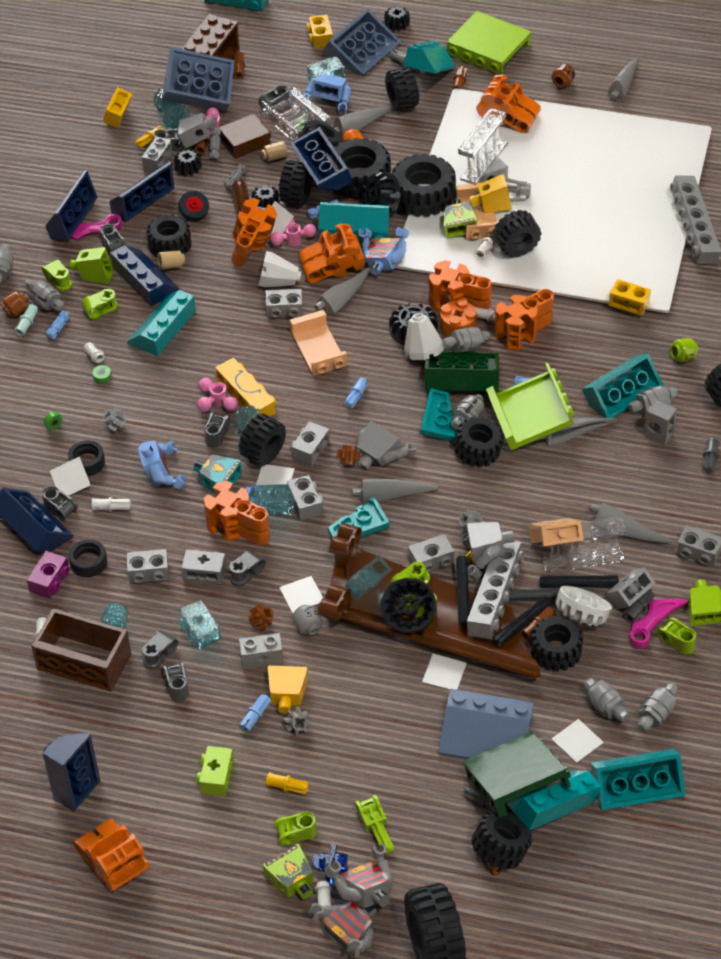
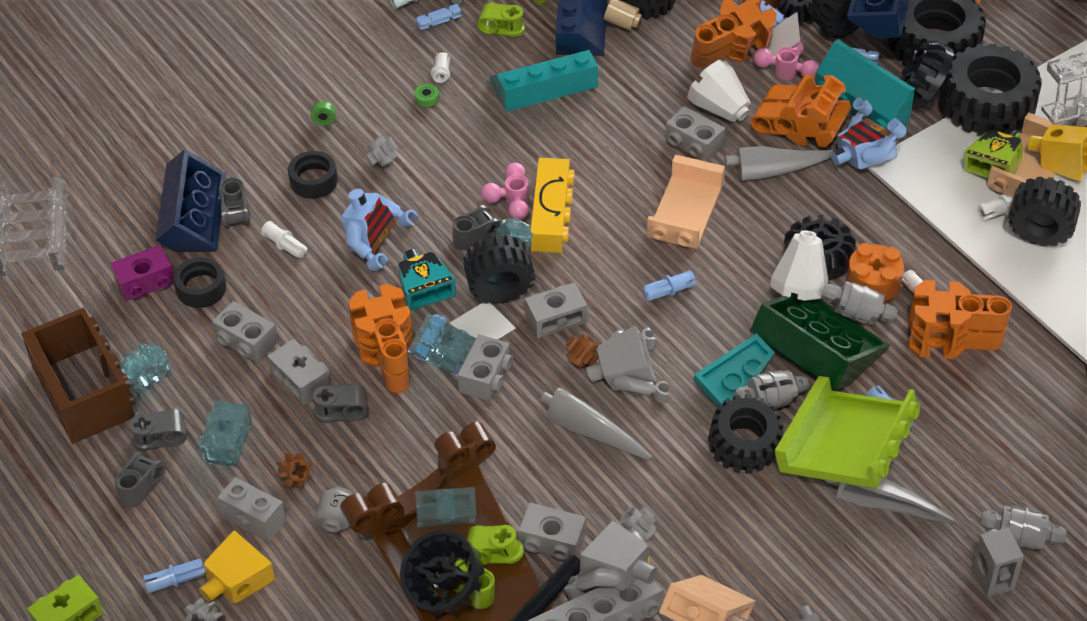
camera: 40 degrees right, 0 degrees up
(70, 477) = (273, 184): white sticker -> none
(301, 593) = (370, 471): white sticker -> none
(368, 517) = (522, 440): teal wing -> none
(452, 284) = (909, 232): orange connector -> none
(618, 388) = (993, 481): teal slope -> none

